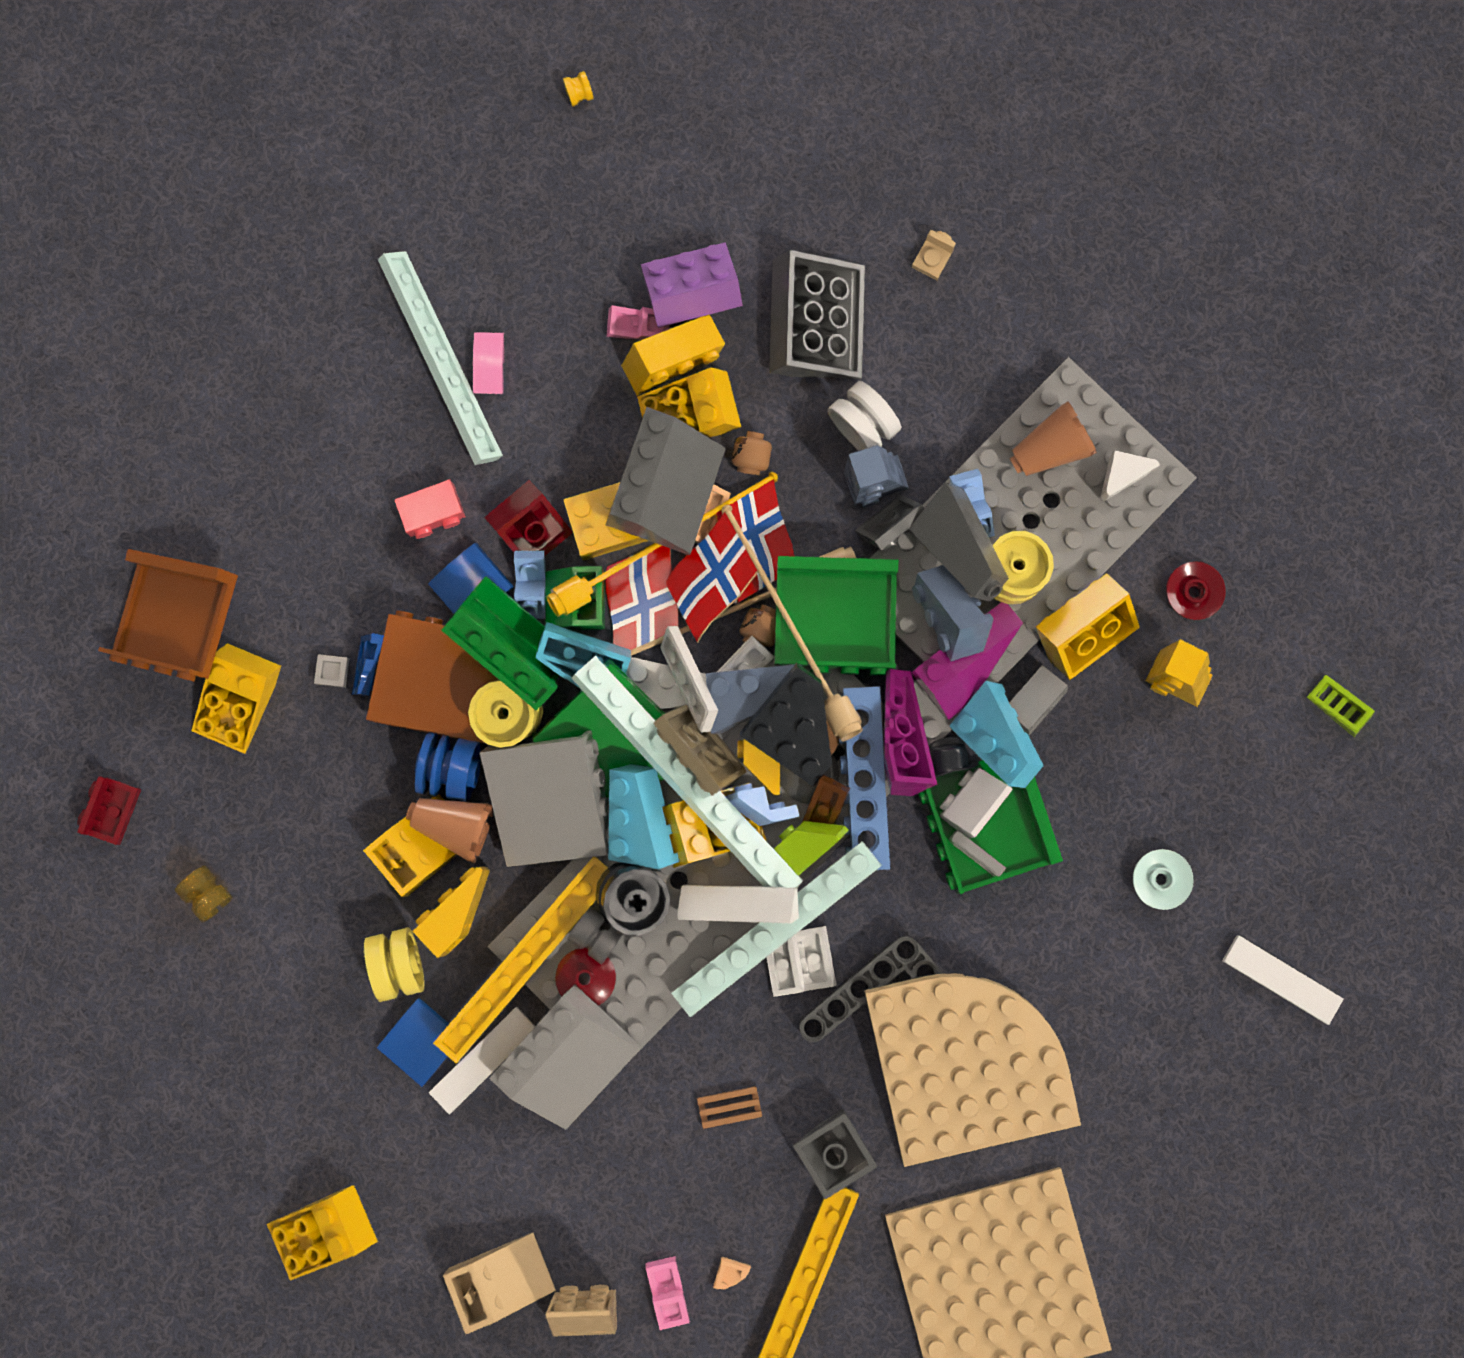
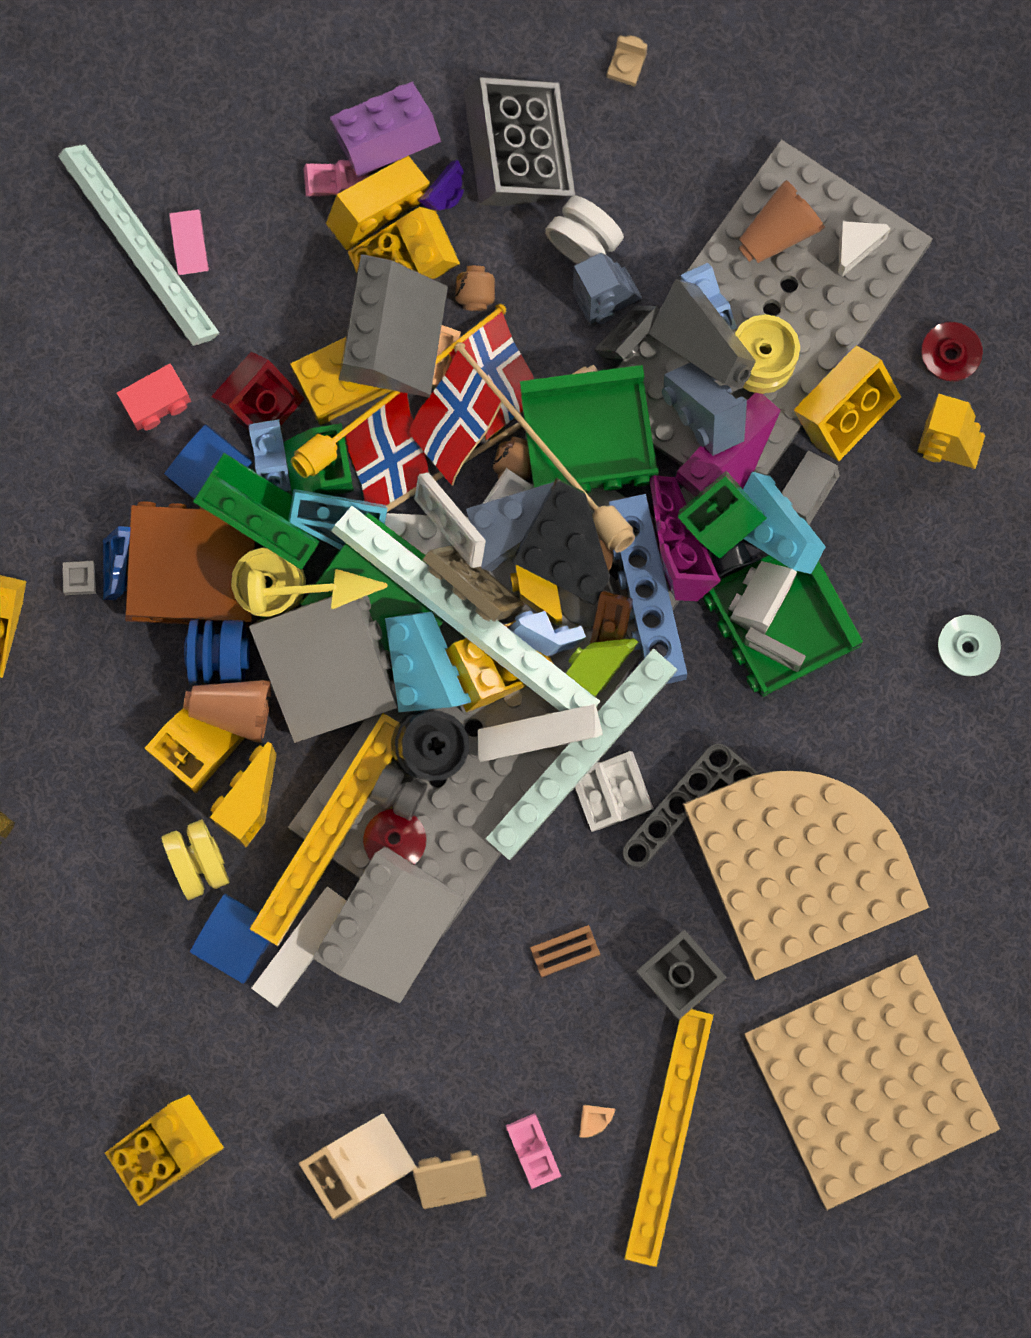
camera: 10 degrees left, 5 degrees down
(576, 736) = (345, 589): none -> light yellow piece
(740, 352) = (446, 189): none -> dark purple plate
(948, 720) = (721, 515): none -> green slope

